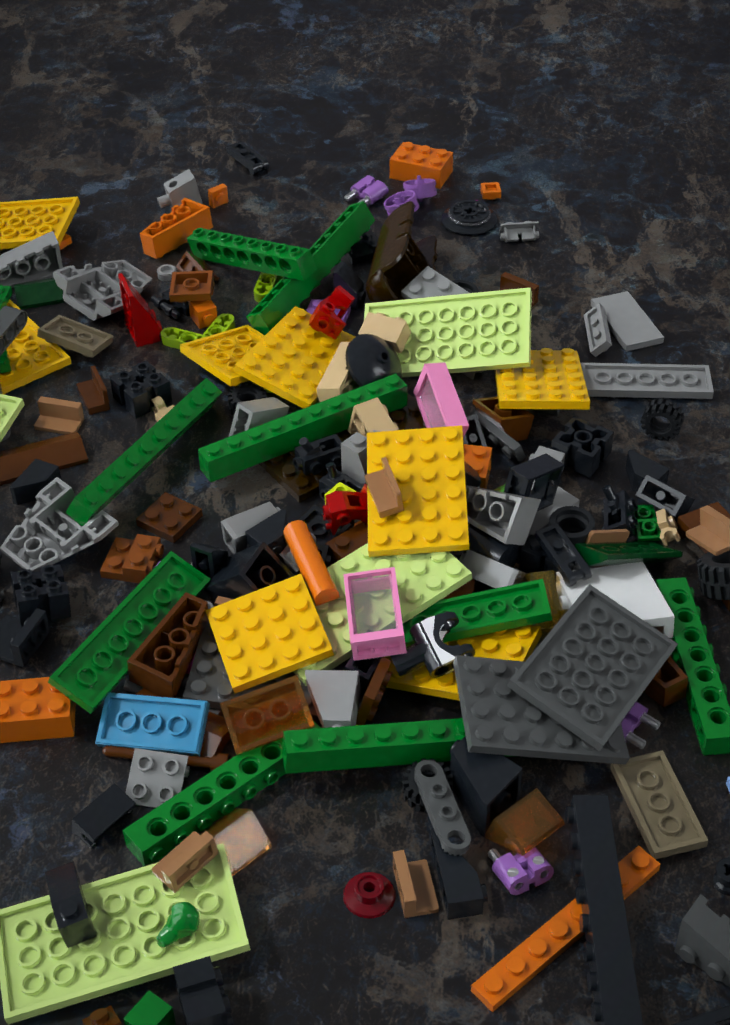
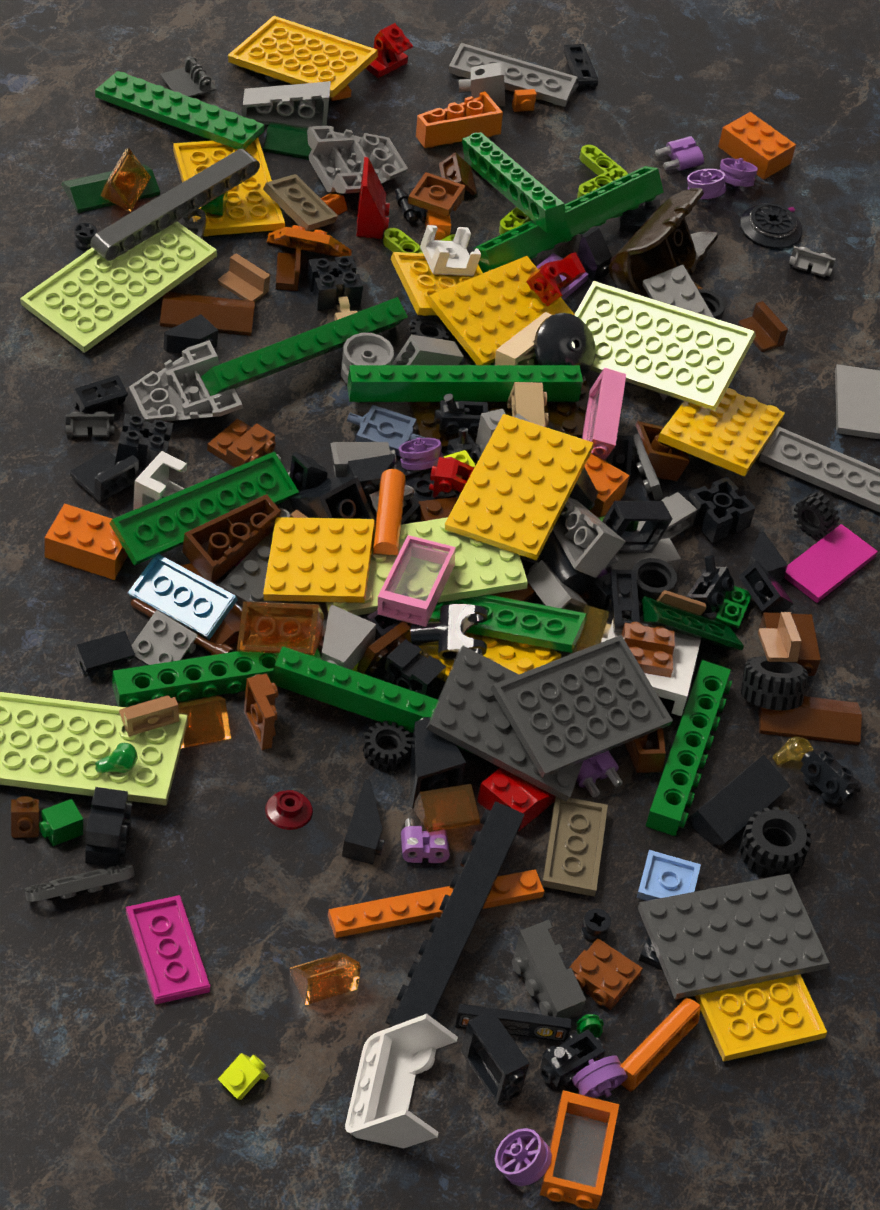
camera: 15 degrees right, 5 degrees up
(69, 626) = (154, 480): none -> white panel
(69, 905) = (41, 709): black slope -> none
(85, 187) = (390, 45): none -> red tile
(105, 325) = (335, 202): none -> orange slope
(105, 362) = (310, 241): none -> orange wing
(165, 272) = (426, 165): light grey tile -> none
(169, 517) = (296, 419): reddish brown plate -> none
(200, 433) = (365, 350): none -> light grey wheel
(230, 330) = (449, 256): none -> white panel
(234, 177) = (518, 74): none -> light grey plate
(254, 491) = (384, 426): none -> sand blue plate
(290, 804) = (261, 708): none -> dark orange plate
(301, 501) = (420, 453): none -> medium lavender wheel
(308, 221) = (592, 158): none -> lime beam
(384, 490) = (485, 475): medium nougat panel -> none
(392, 330) = (600, 320): tan brick -> none
(414, 886) = (328, 818): medium nougat panel -> none
(415, 700) = (414, 671): none -> black brick
(442, 807) = (384, 765): dark grey plate -> none
(490, 190) = (813, 203): orange plate -> none
(572, 778) = (514, 793): none -> red slope
(597, 330) = (819, 399): light grey plate -> none
(616, 582) = (651, 647): none -> dark orange plate
(667, 526) = (749, 618): tan plate -> none
(695, 455) = (829, 563): none -> dark pink tile

